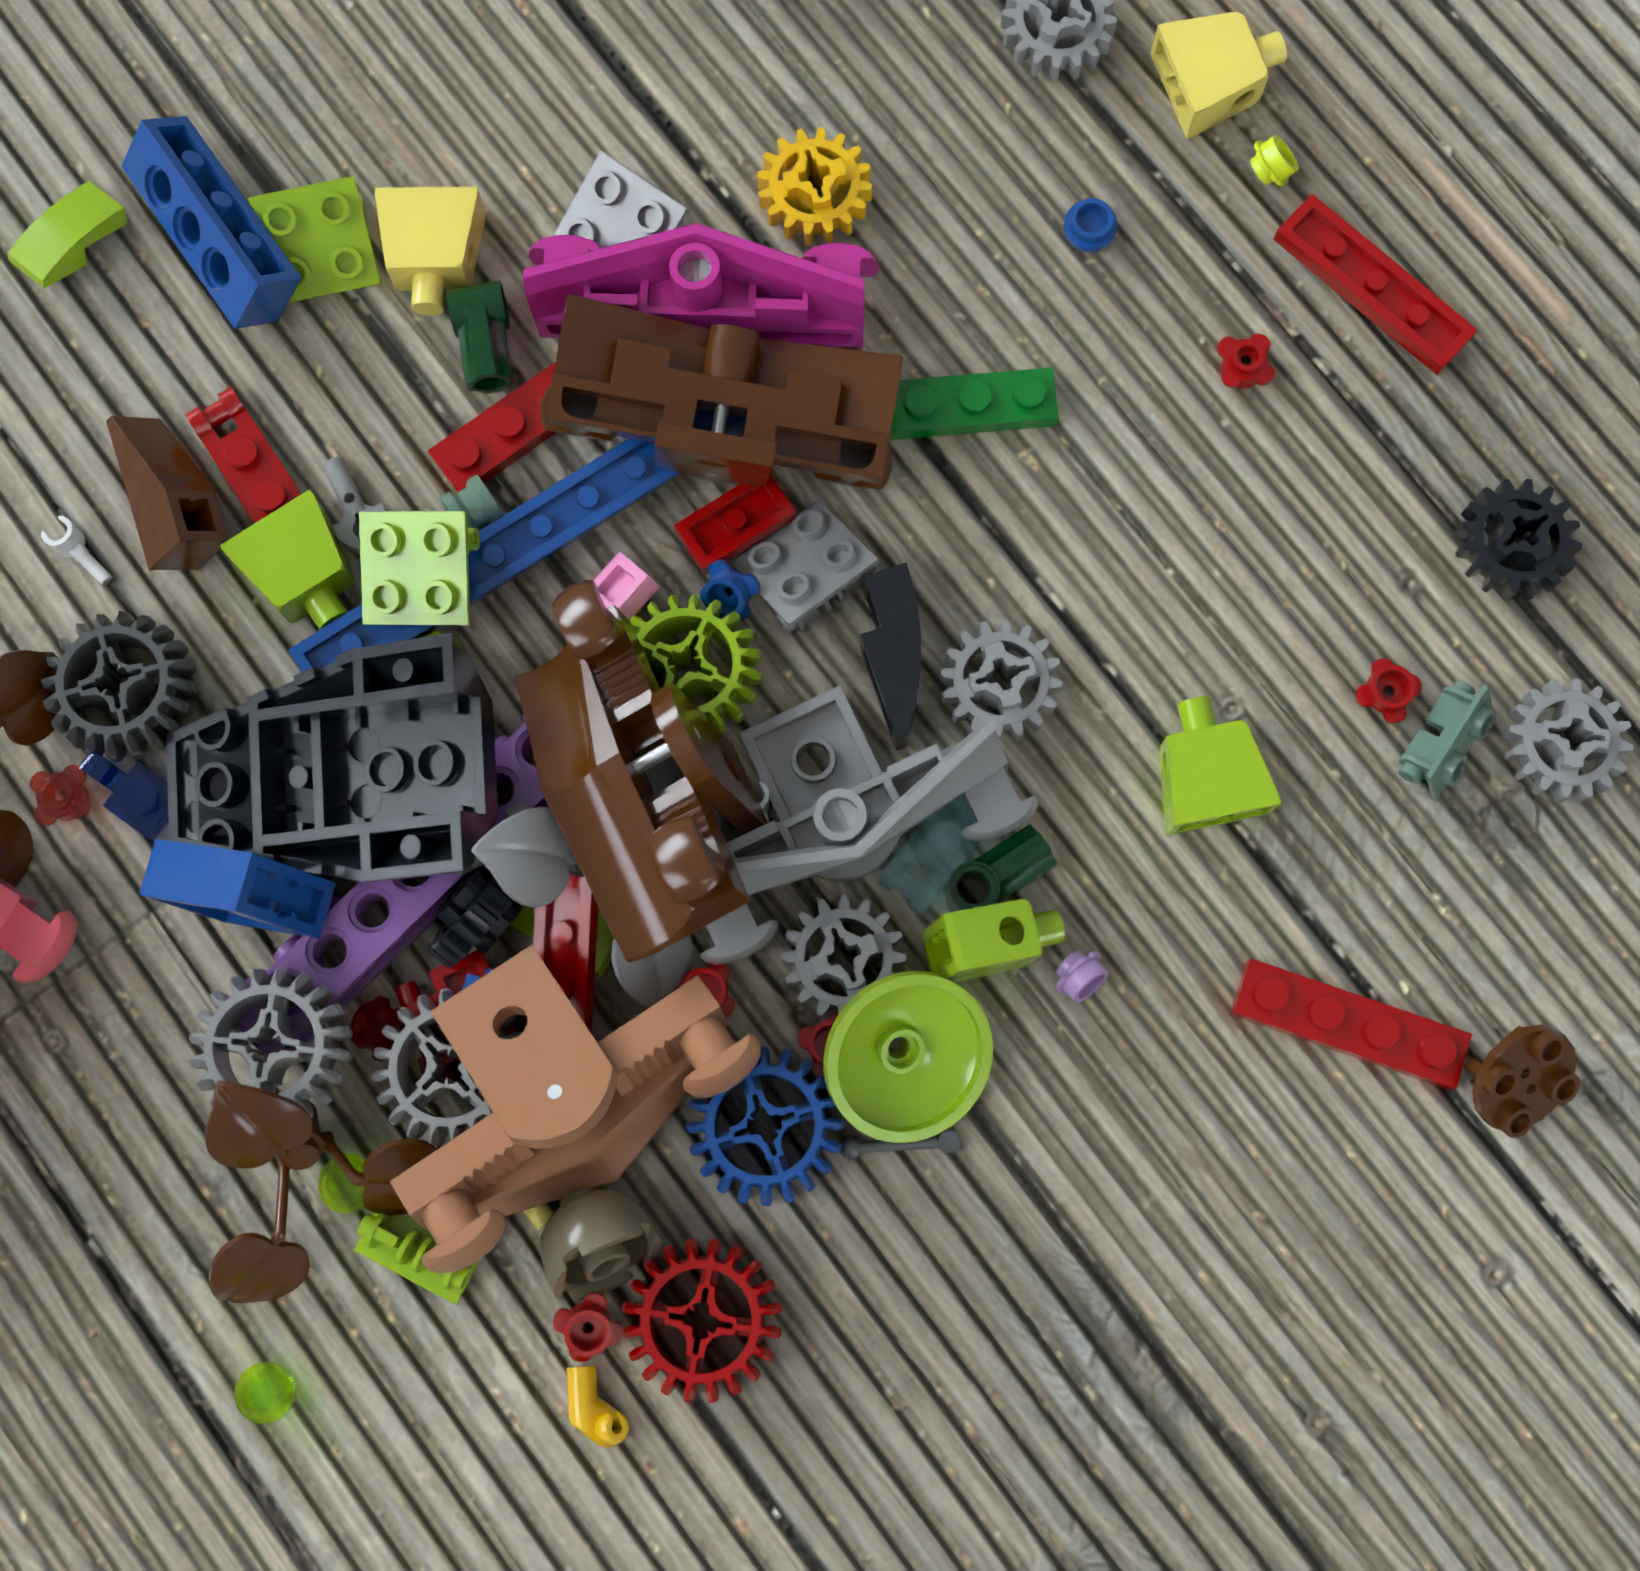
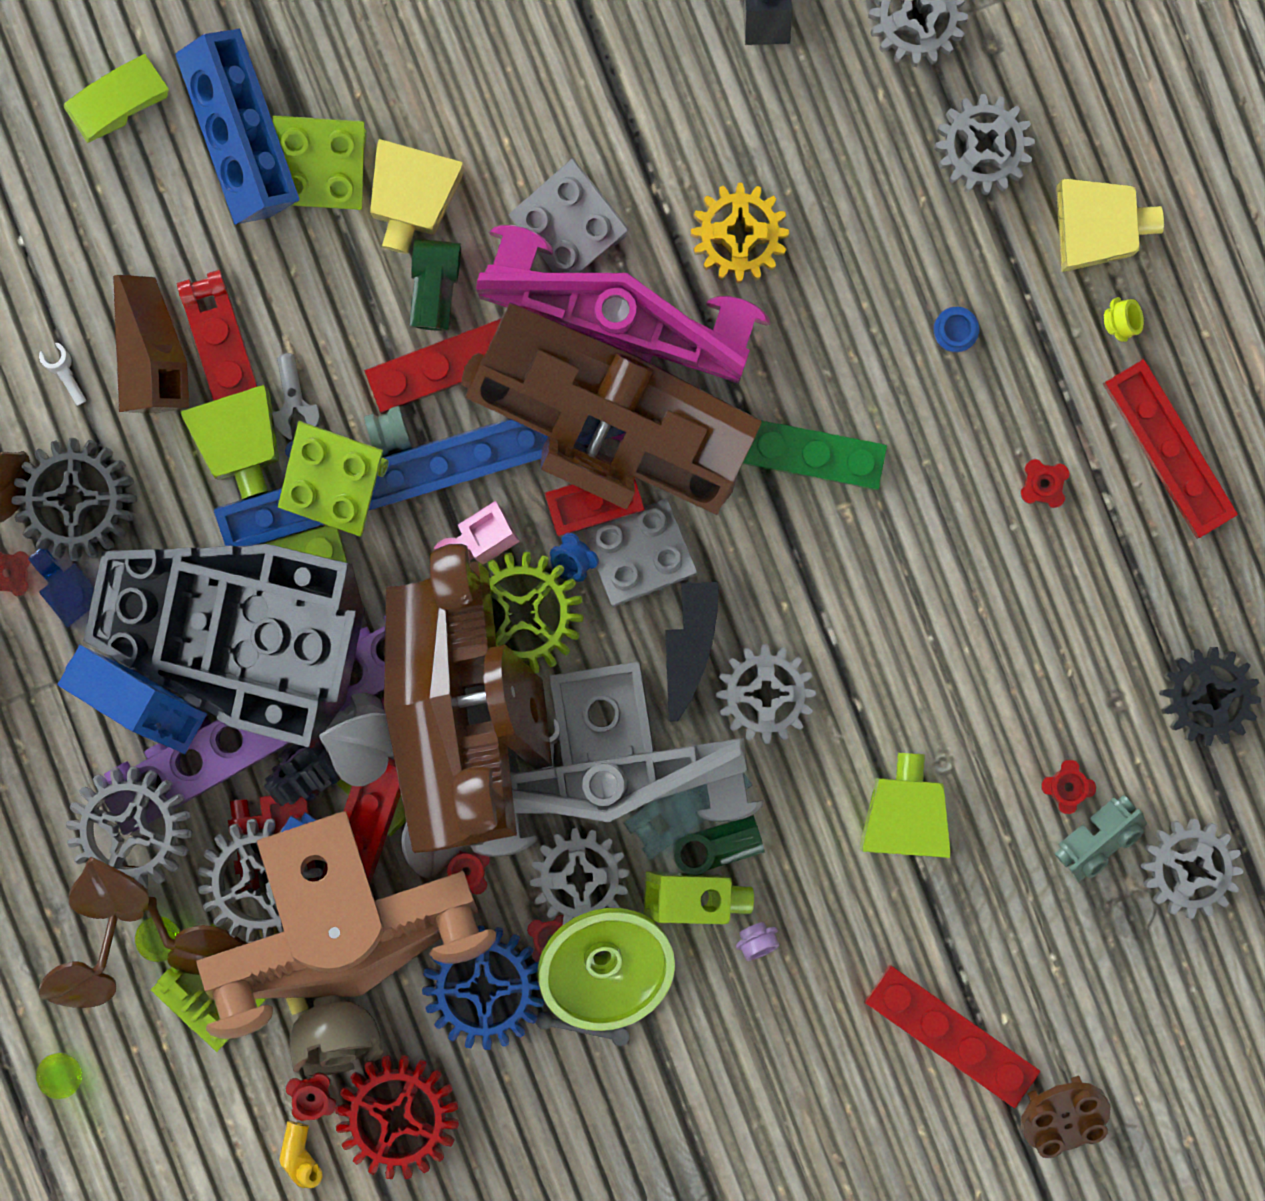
camera: 10 degrees right, 10 degrees up
(369, 1023) = (207, 824): clear red plate -> none

